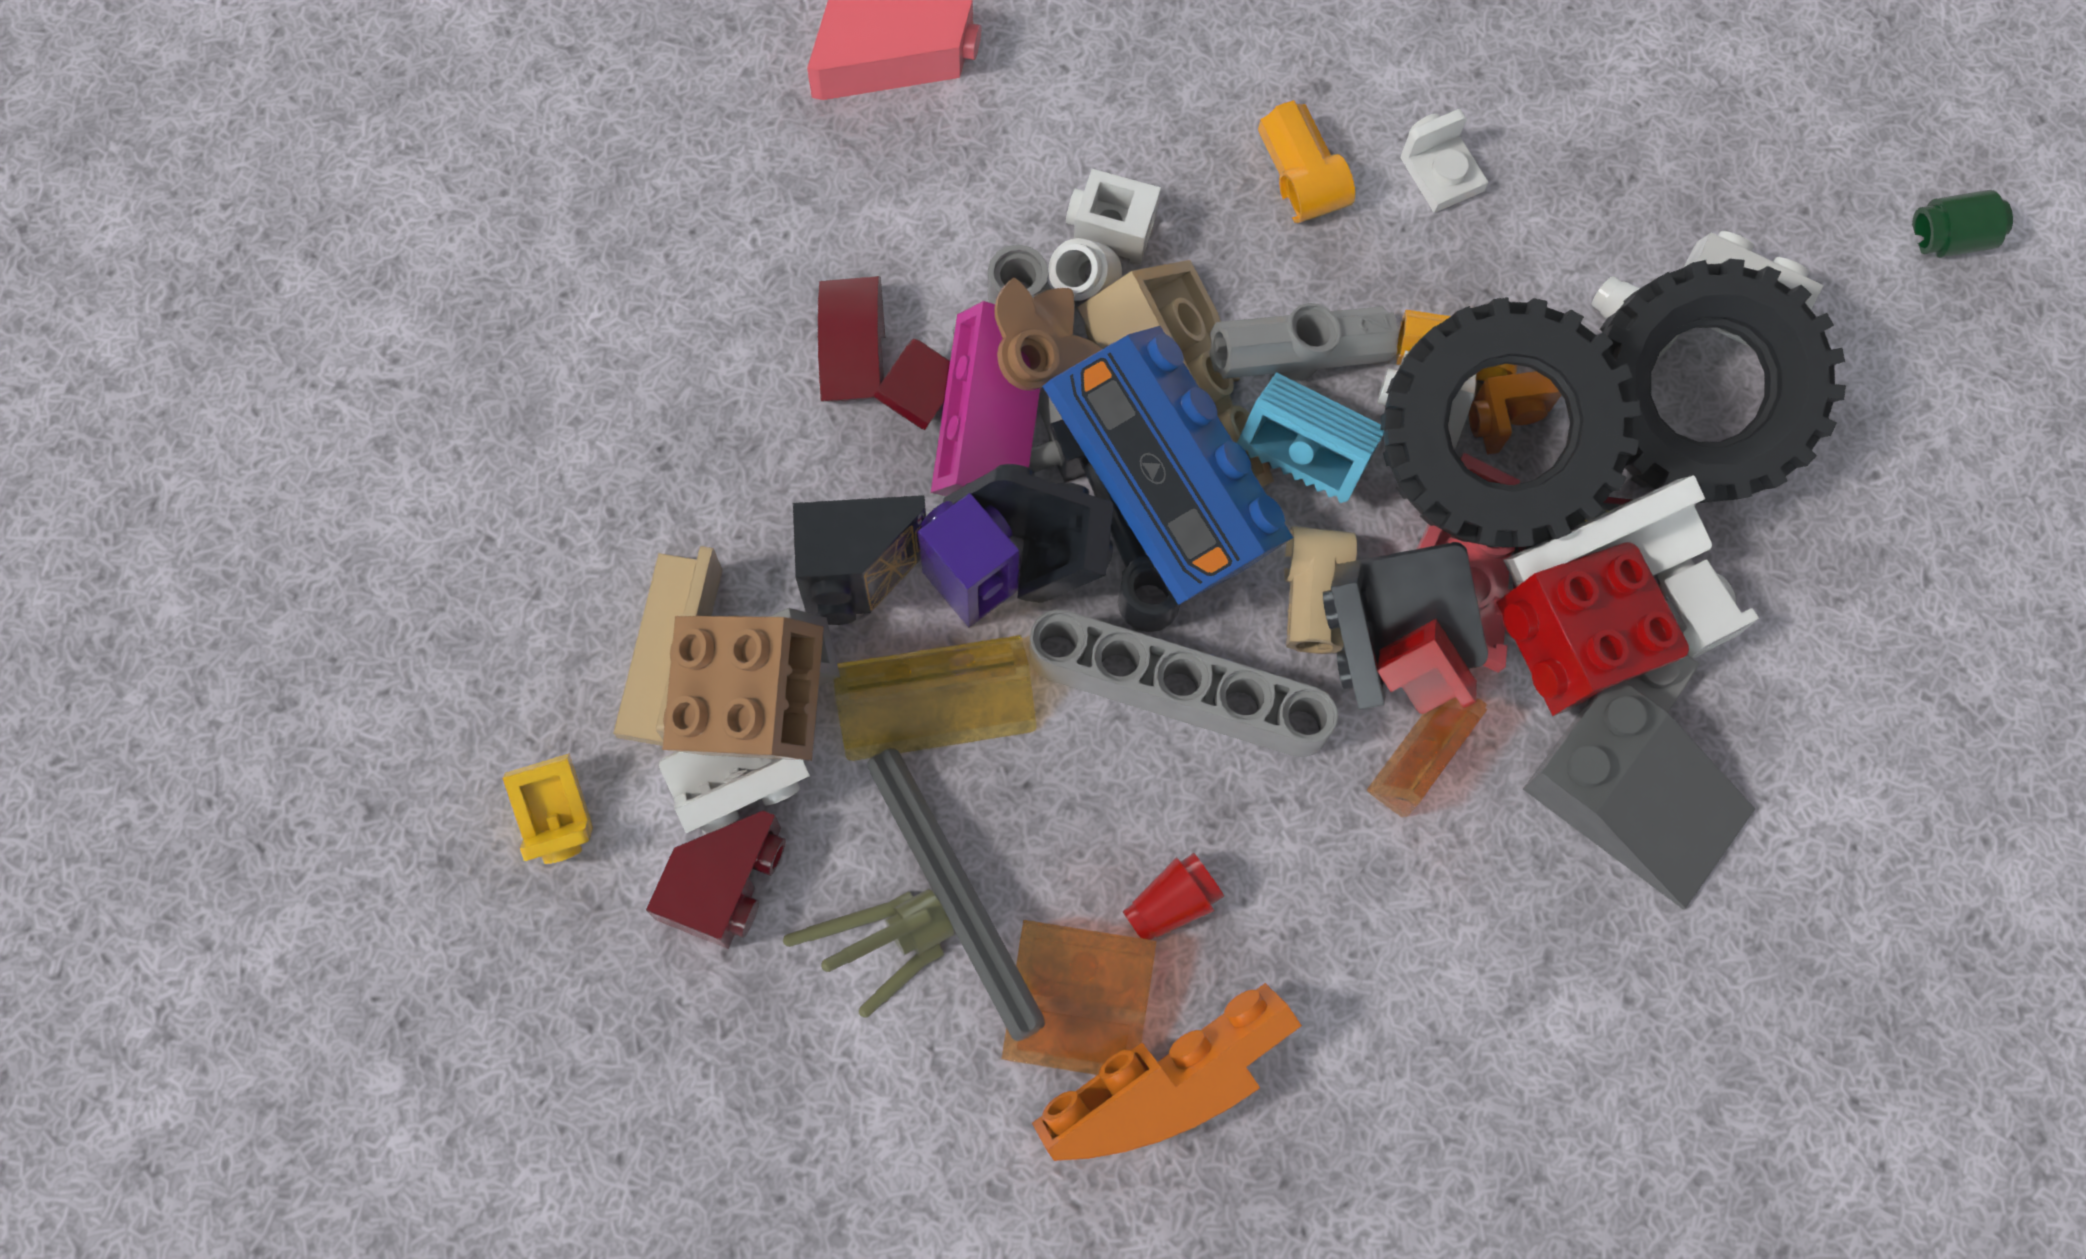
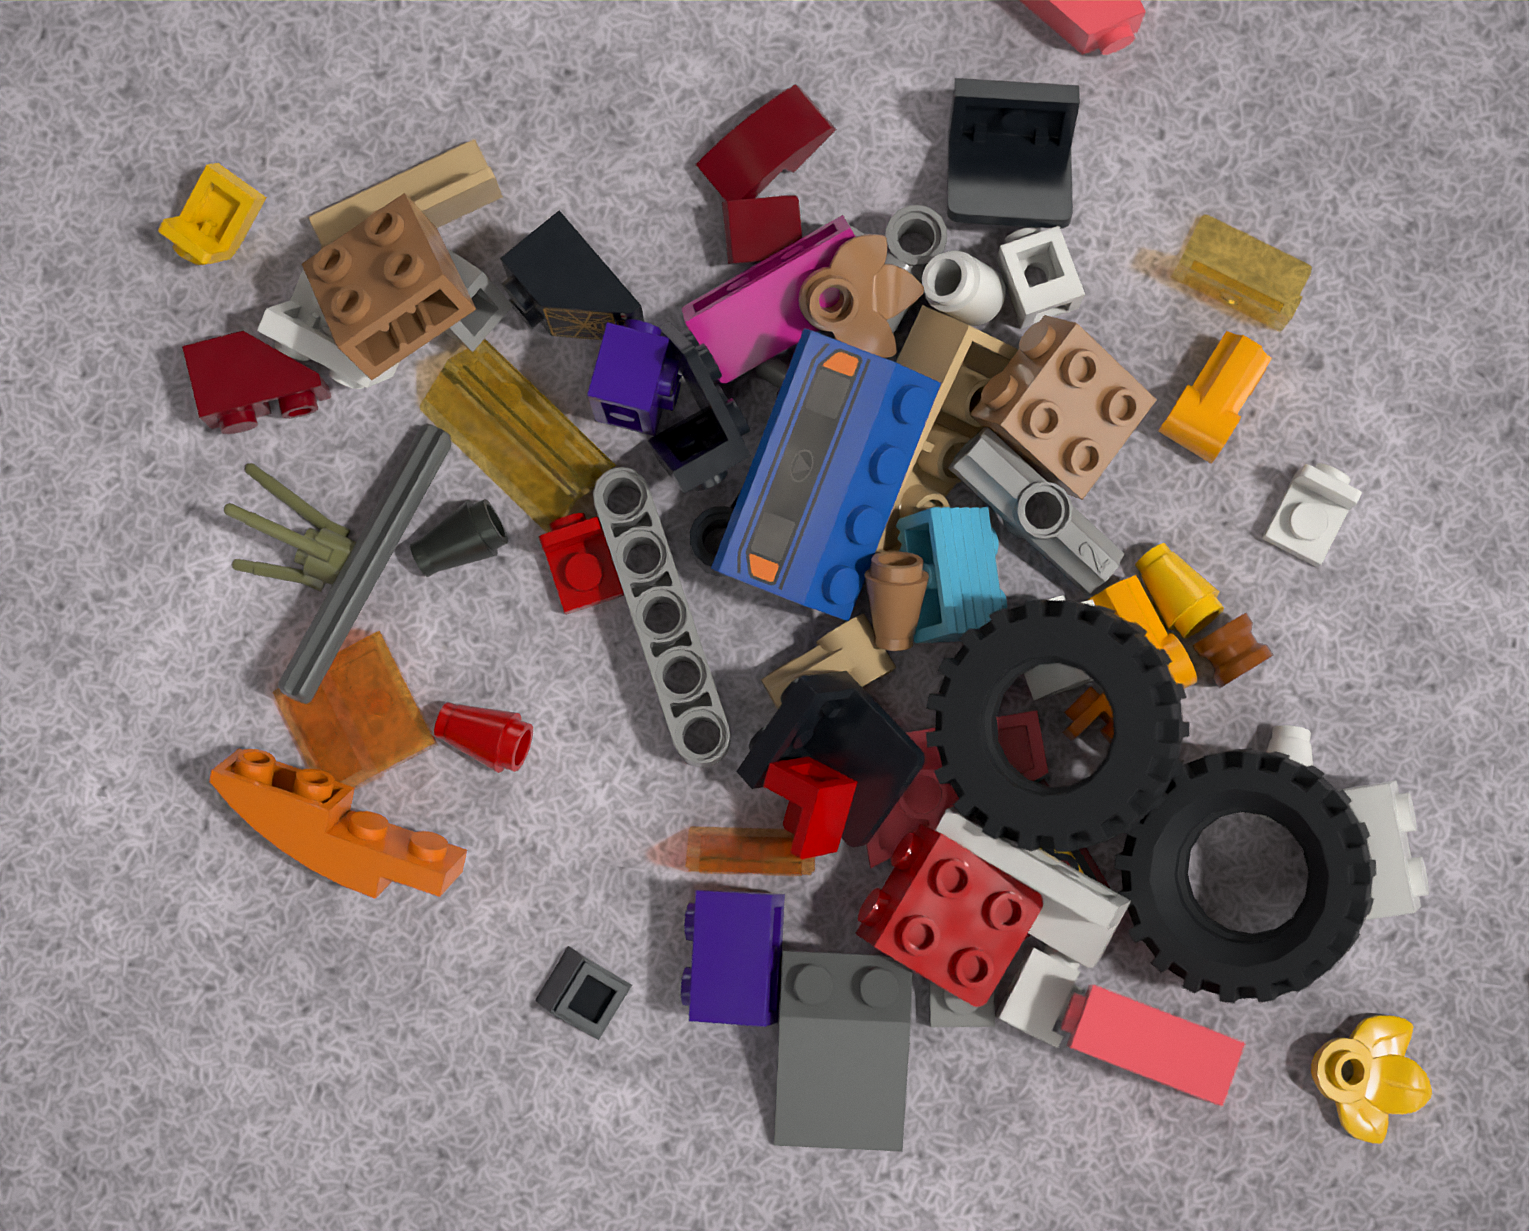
camera: 60 degrees right, 10 degrees up
(989, 801) = (462, 538): none -> pearl dark grey cone
(1000, 169) = (1011, 153): none -> black bracket
(1083, 719) = (580, 562): none -> red bracket
(1221, 84) = (1242, 272): none -> clear yellow panel
(1236, 257) = (1063, 405): none -> medium nougat brick
(1304, 483) = (895, 596): none -> medium nougat cone
(1437, 289) = (1179, 591): none -> yellow cone
(1450, 976) = (583, 993): none -> black slope
(1514, 279) = (1232, 650): none -> dark orange wheel
(1514, 822) = (734, 957): none -> dark purple brick
(1810, 538) = (1152, 1043): none -> coral slope
(1914, 420) = (1381, 1077): none -> yellow plate

